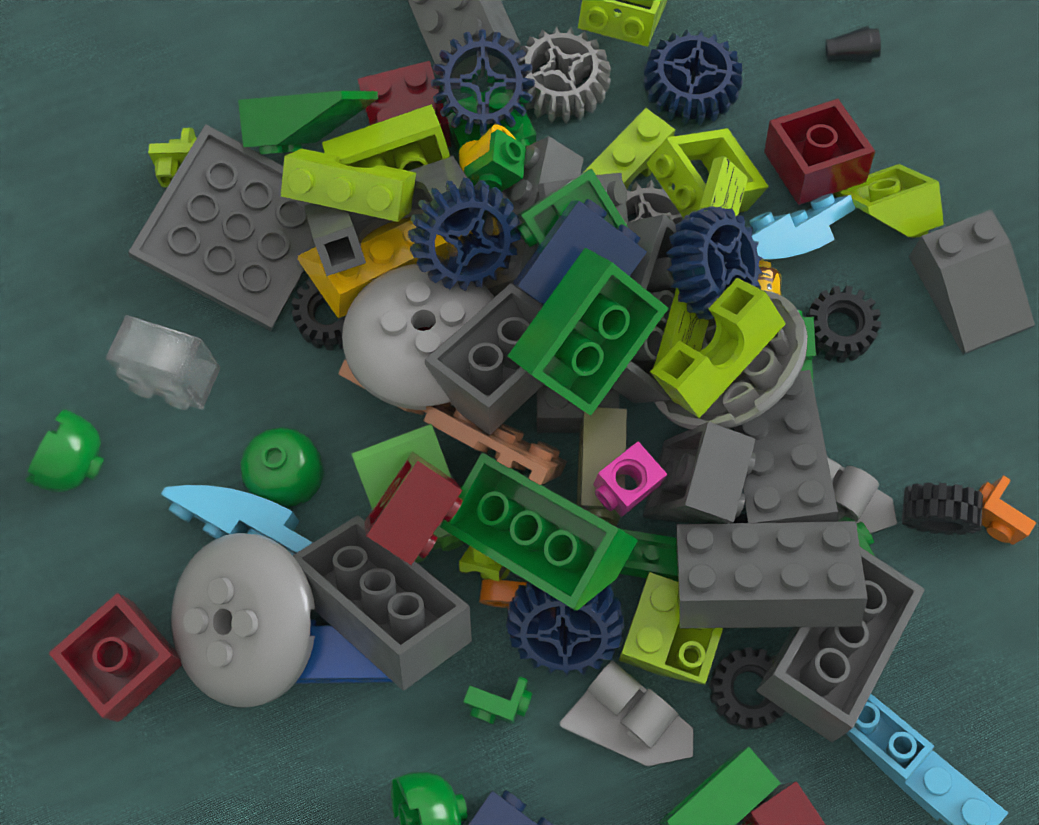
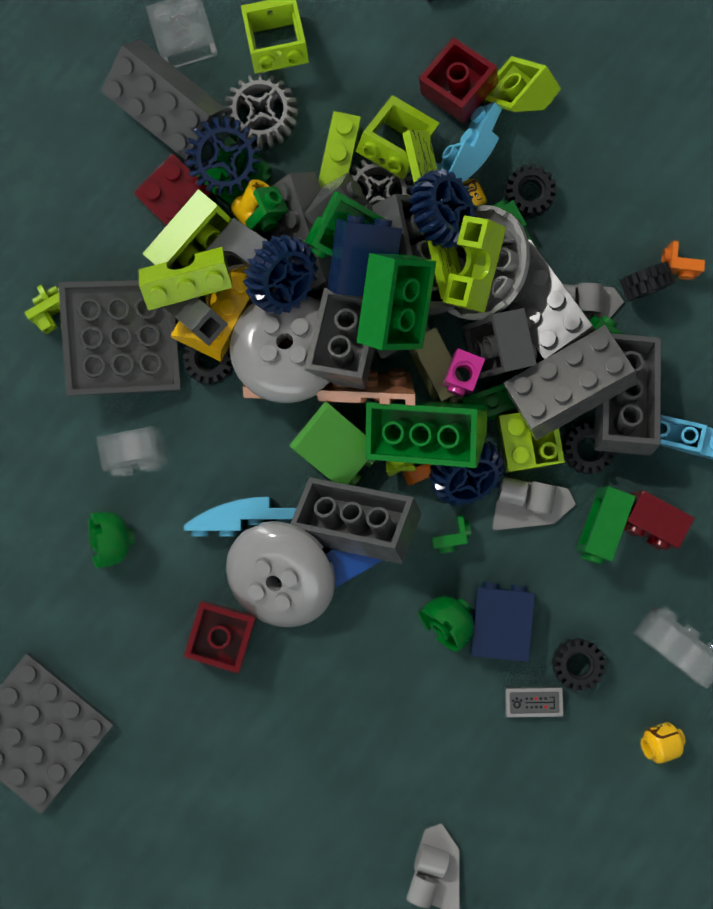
camera: 30 degrees left, 15 degrees up
(282, 467) = (242, 472): green cylinder -> none
(289, 121) = (110, 243): green slope -> none
(413, 509) = (347, 459): dark red brick -> none
(715, 82) = (338, 71): dark blue gear -> none
(974, 281) = (597, 117): dark grey slope -> none

